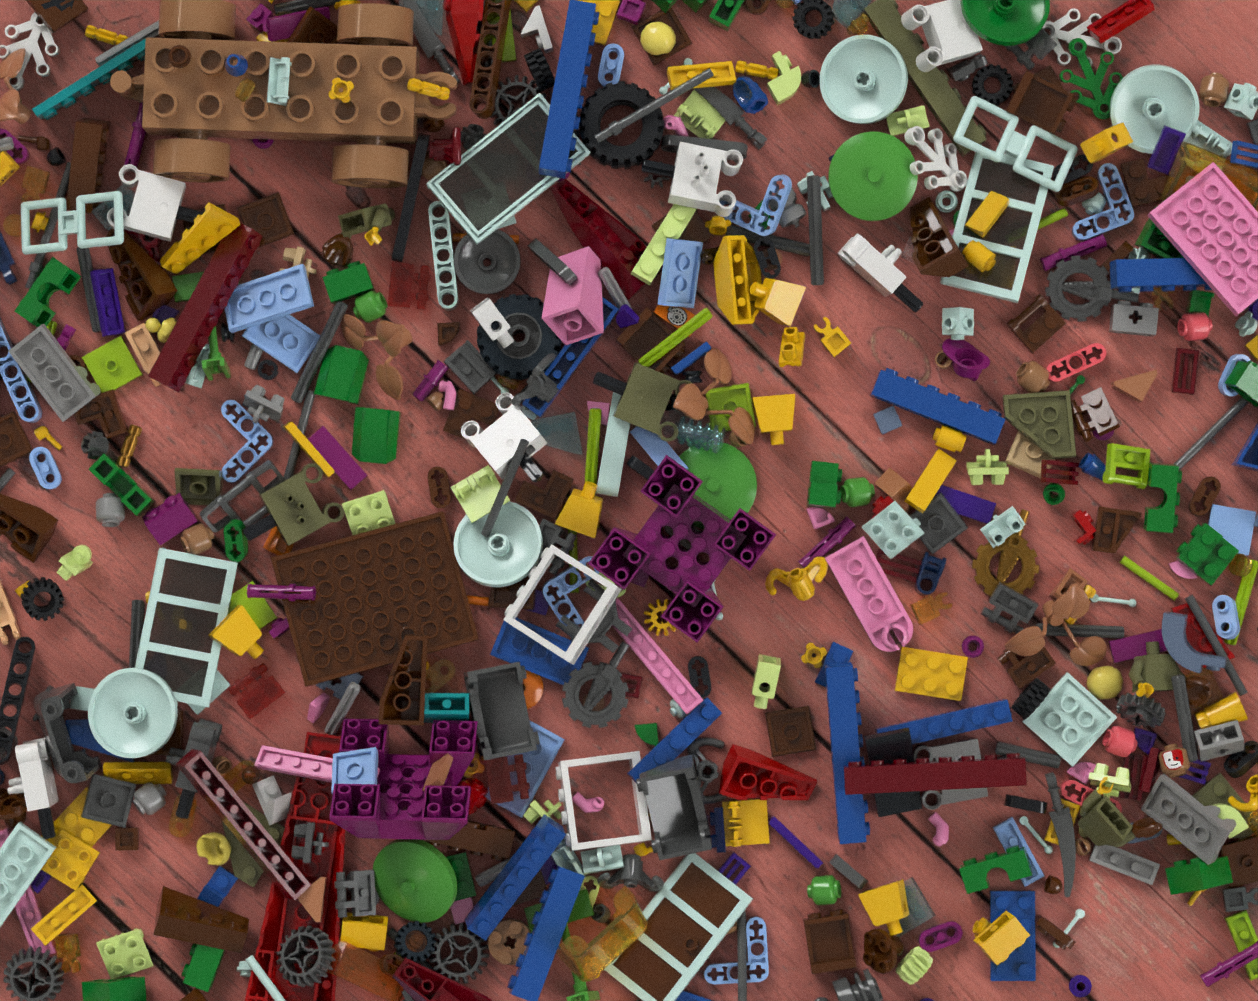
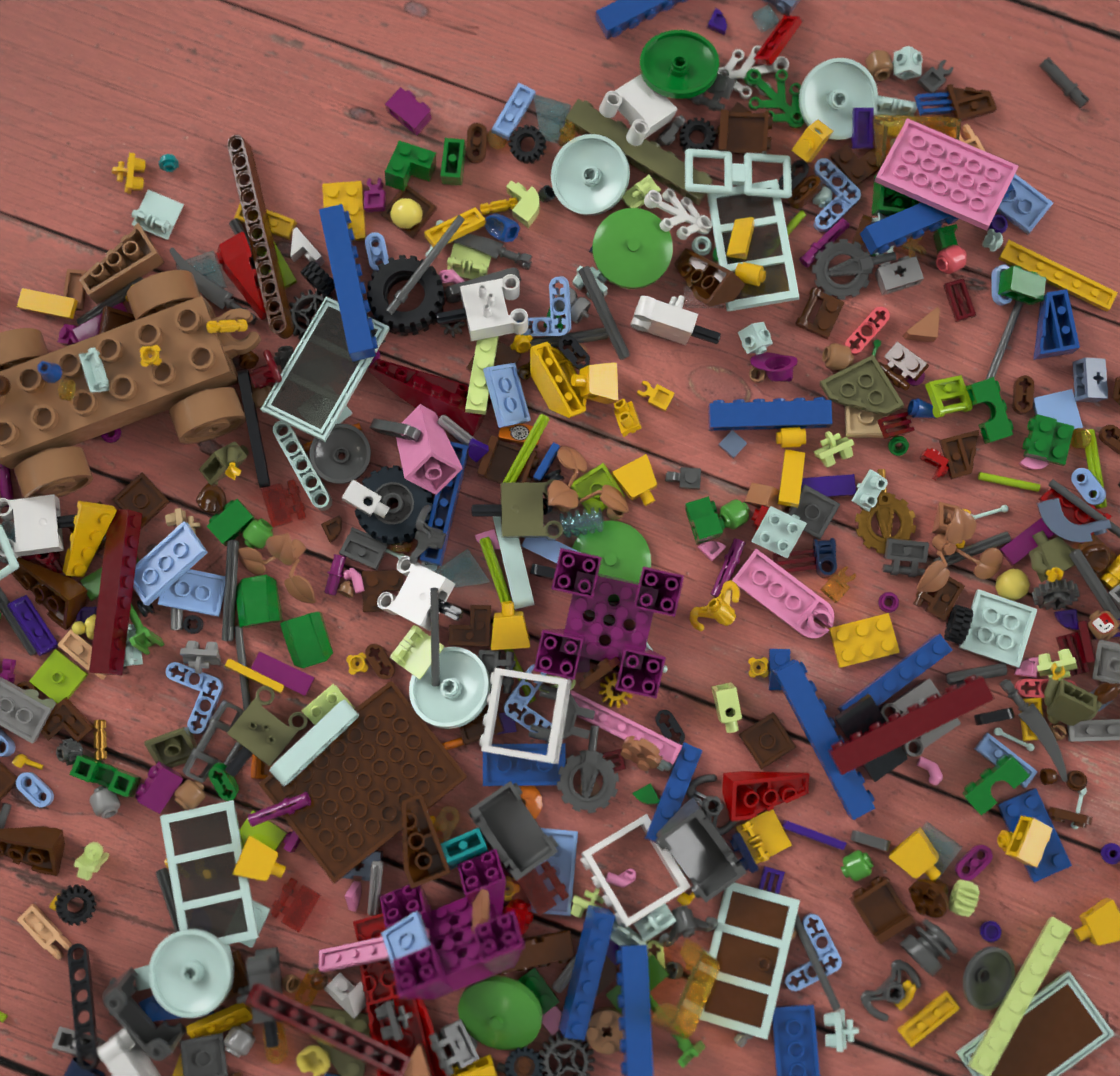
camera: 20 degrees left, 5 degrees down
(342, 541) = (314, 742): none -> light aqua beam
(419, 485) = (353, 668): none -> yellow plate
(652, 592) = (599, 672): none -> reddish brown plate
(660, 689) = (641, 752): none -> nougat plate
(826, 434) = (688, 478): none -> dark grey plate
(1078, 901) = (1076, 780): none -> reddish brown plate
(1119, 741) = (1048, 628): coral head -> none

